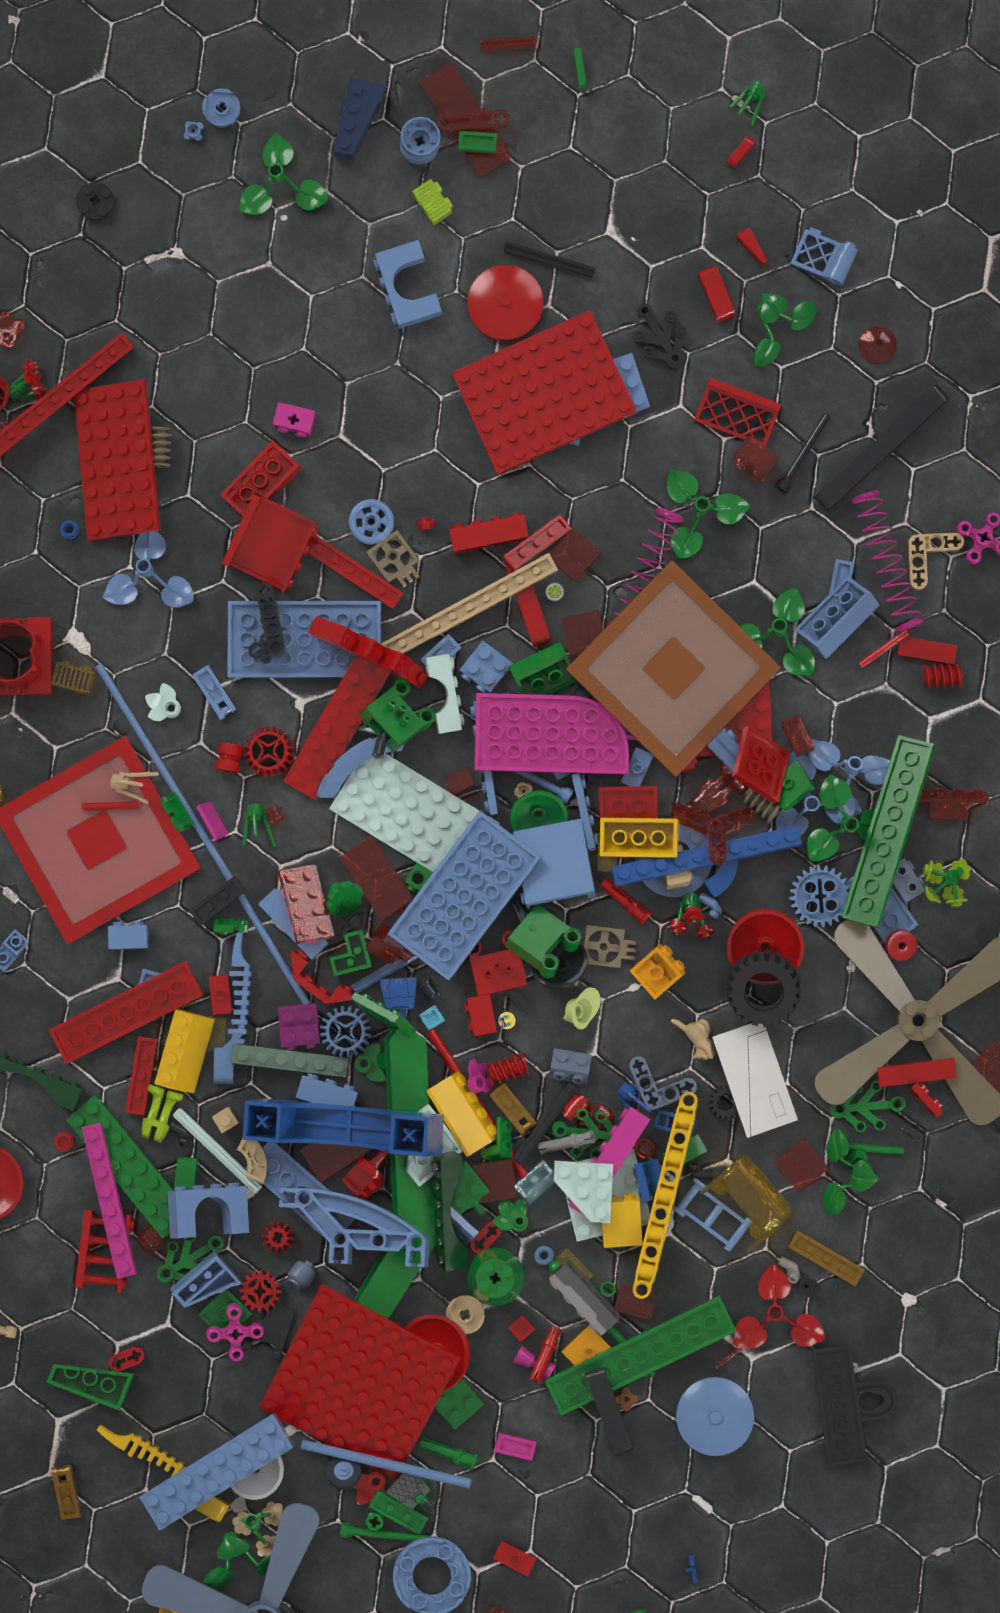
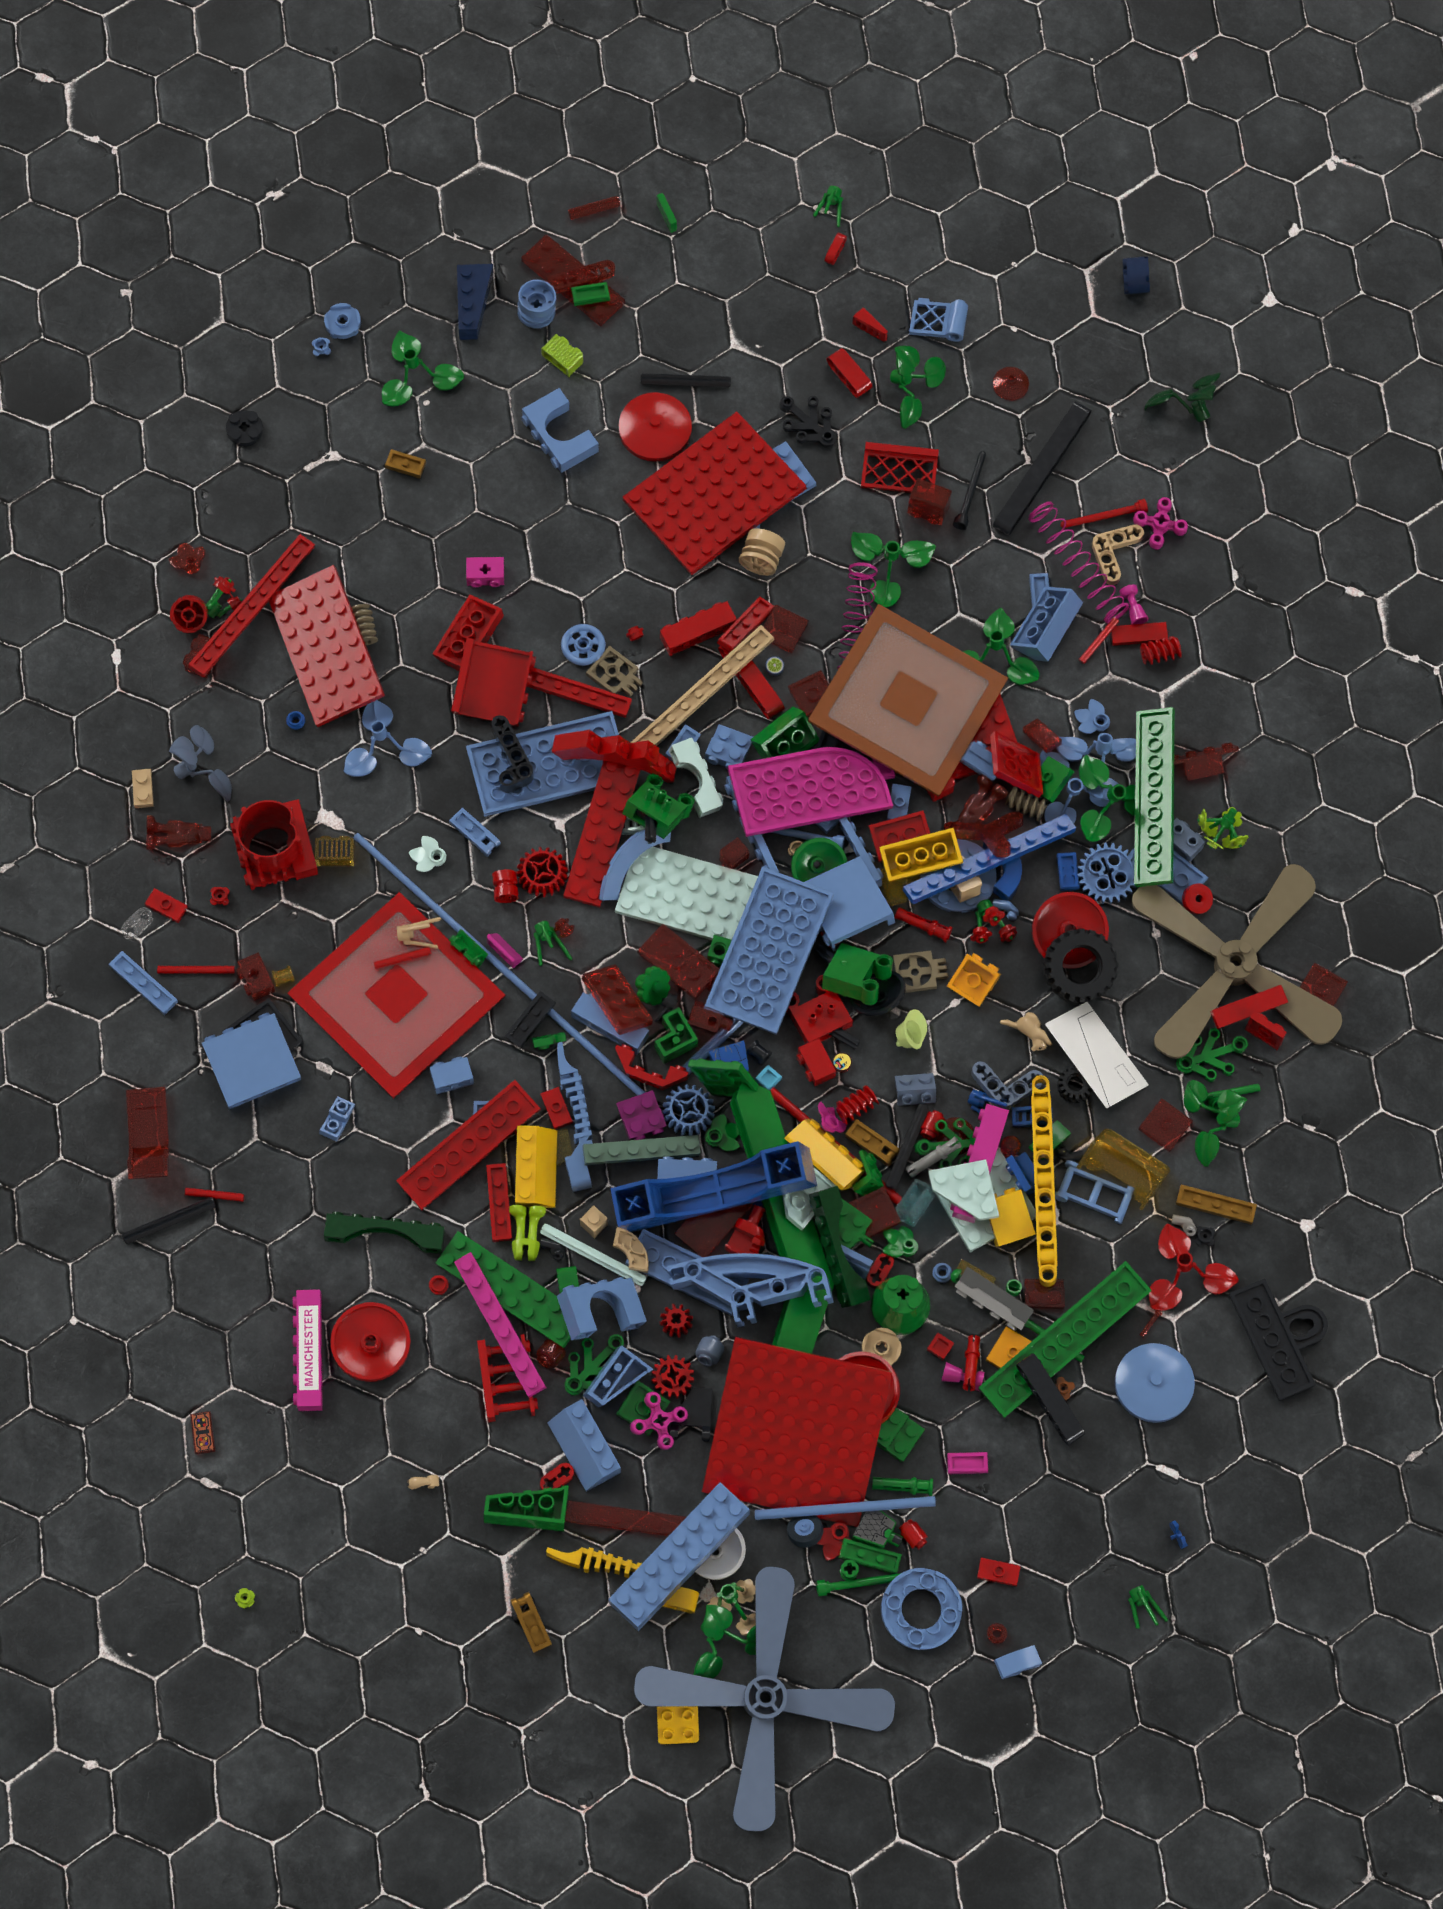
camera: 25 degrees left, 15 degrees down
(160, 1335) = (584, 1445): none -> medium blue slope
(180, 1414) = (622, 1518): none -> clear red plate
(245, 281) = (405, 463): none -> pearl gold plate
(444, 1503) = (913, 1534): none -> red brick
(571, 473) = (762, 552): none -> tan wheel
(782, 883) = (1067, 871): none -> blue plate
(851, 726) = (1090, 716): none -> medium blue plate
(930, 627) = (1136, 612): none -> dark pink piece
(967, 514) = (1140, 505): none -> red piece

